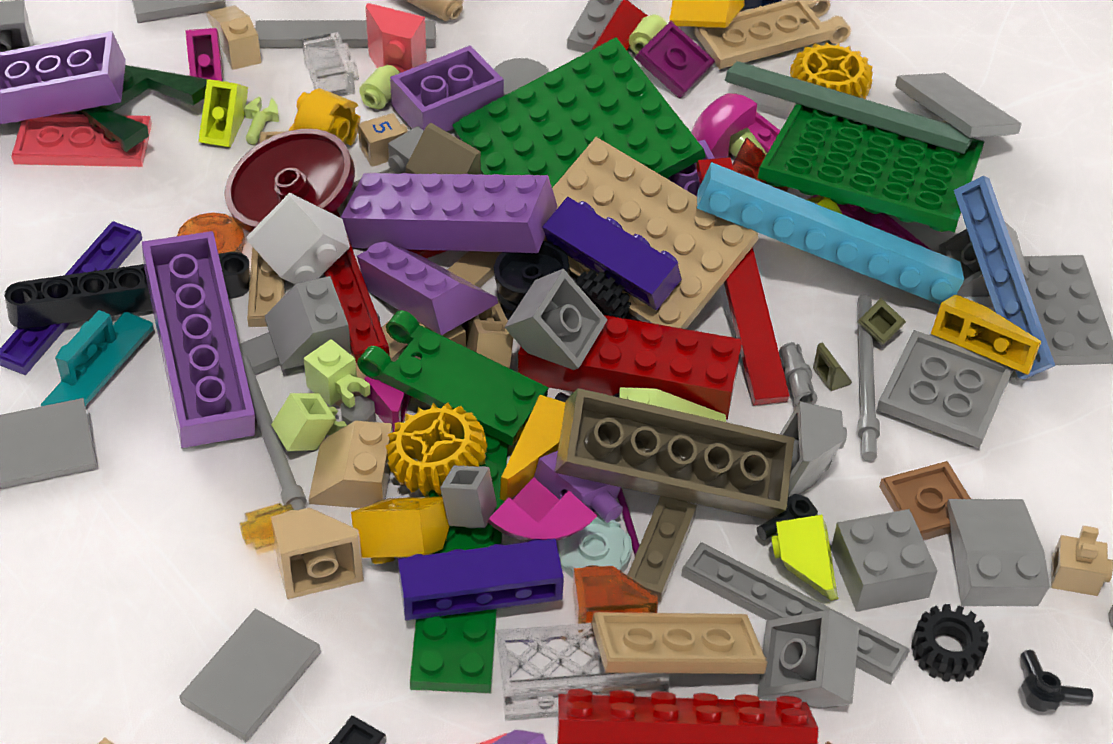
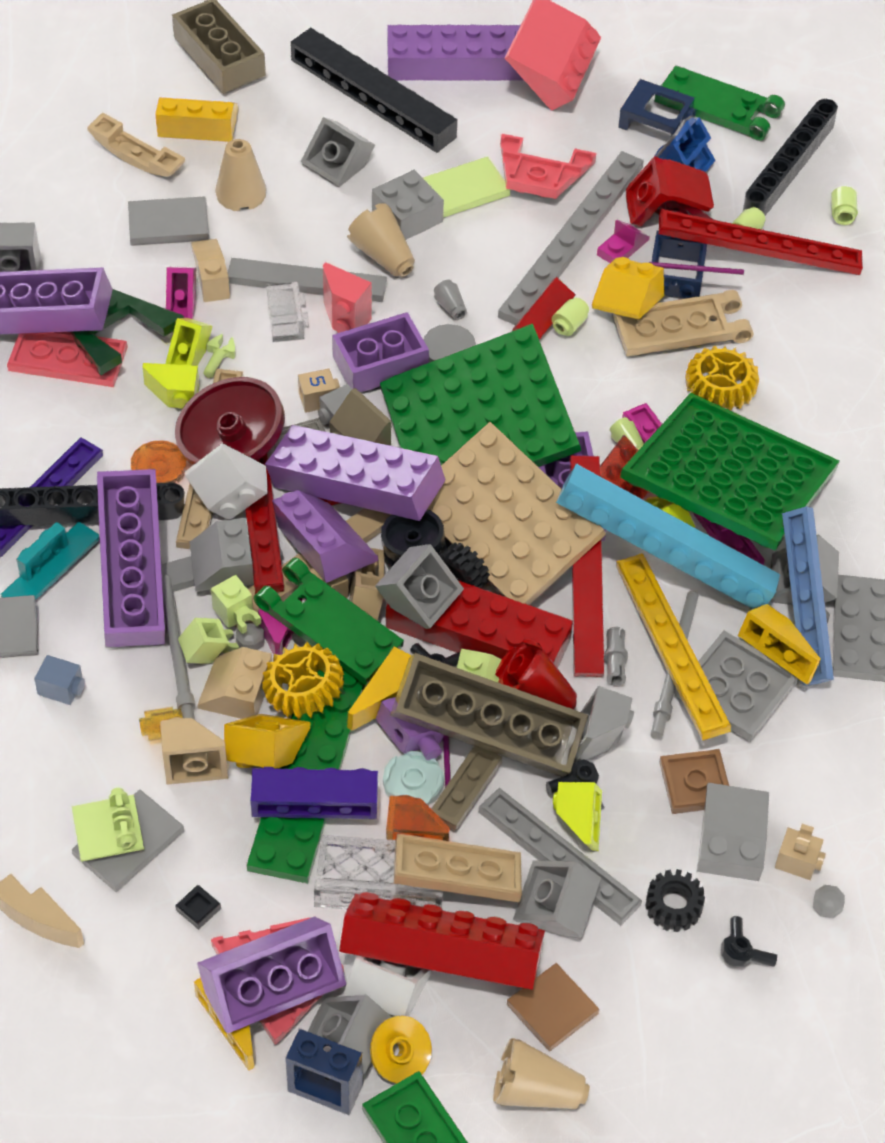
camera: 10 degrees right, 5 degrees up
(130, 492) = (59, 680): none -> sand blue brick
(210, 151) = (171, 382): none -> neon yellow slope
(222, 659) = (108, 826): none -> yellowish green hinge
(327, 113) = (273, 366): yellow brick -> none
(377, 89) = (321, 339): yellowish green brick -> none
(468, 496) = (318, 725): light grey brick -> none
(510, 32) = (450, 299): none -> light grey cone
(541, 515) = (372, 748): dark pink brick -> none
(609, 249) = (480, 530): dark purple brick -> none
(674, 59) = (587, 343): magenta tile -> none
(714, 396) = (536, 674): none -> red cone
(722, 120) = (606, 414): dark pink brick -> none
(829, 369) = (646, 654): olive slope -> none
(848, 106) = (726, 413): sand green tile -> none
(864, 357) = (673, 647): none -> yellow tile
(881, 321) = (698, 619): olive slope -> none
(883, 560) = (640, 825): light grey brick -> none
(958, 105) = (824, 423): light grey tile -> none

